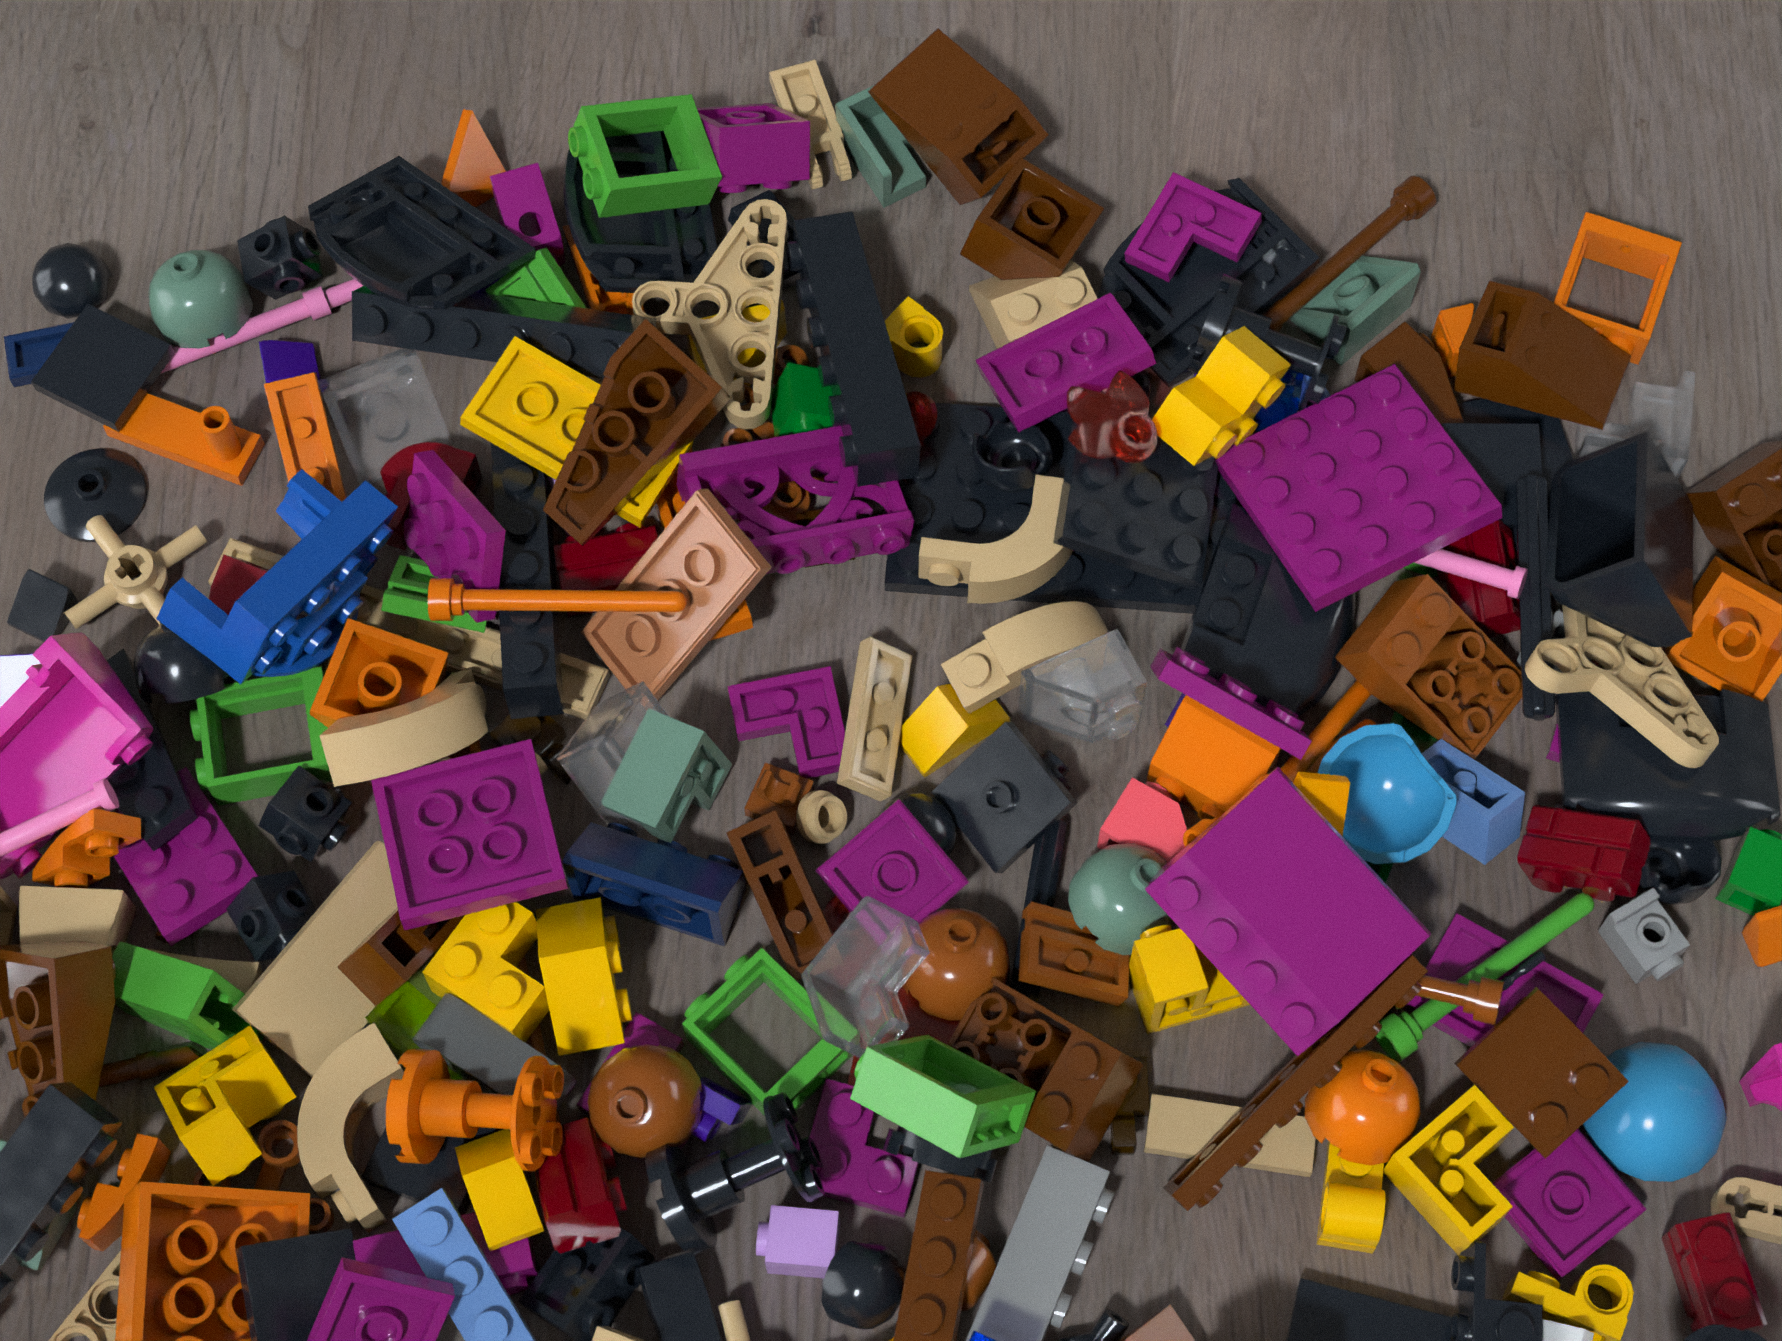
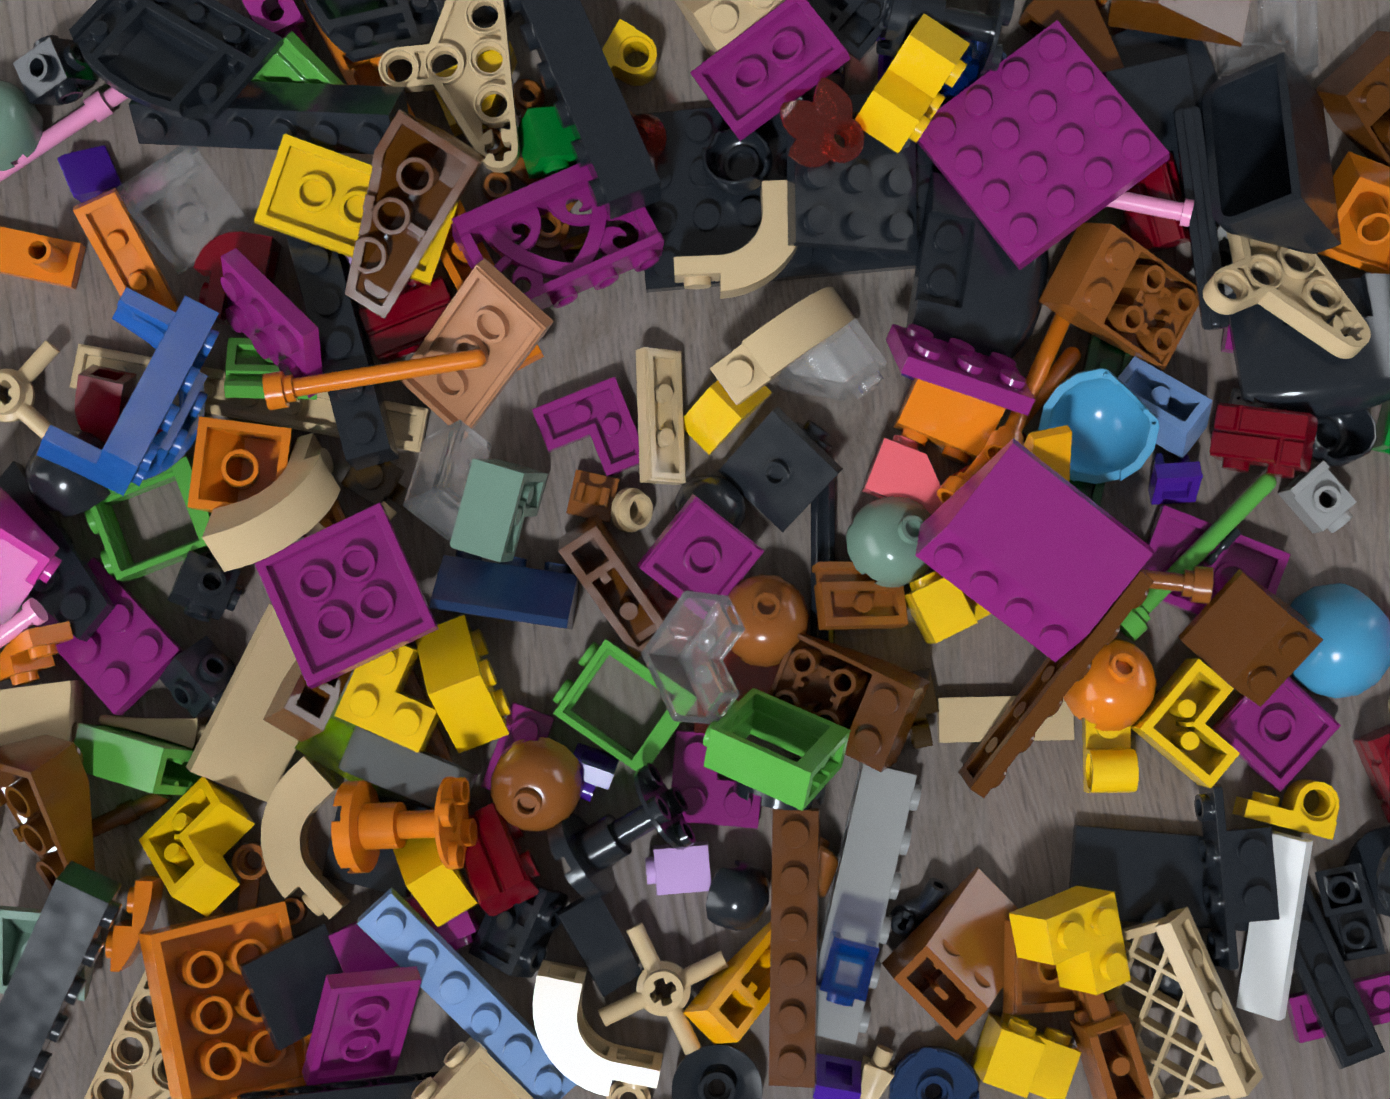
camera: 10 degrees left, 20 degrees up
(1472, 890) = (1174, 481): none -> dark purple tile

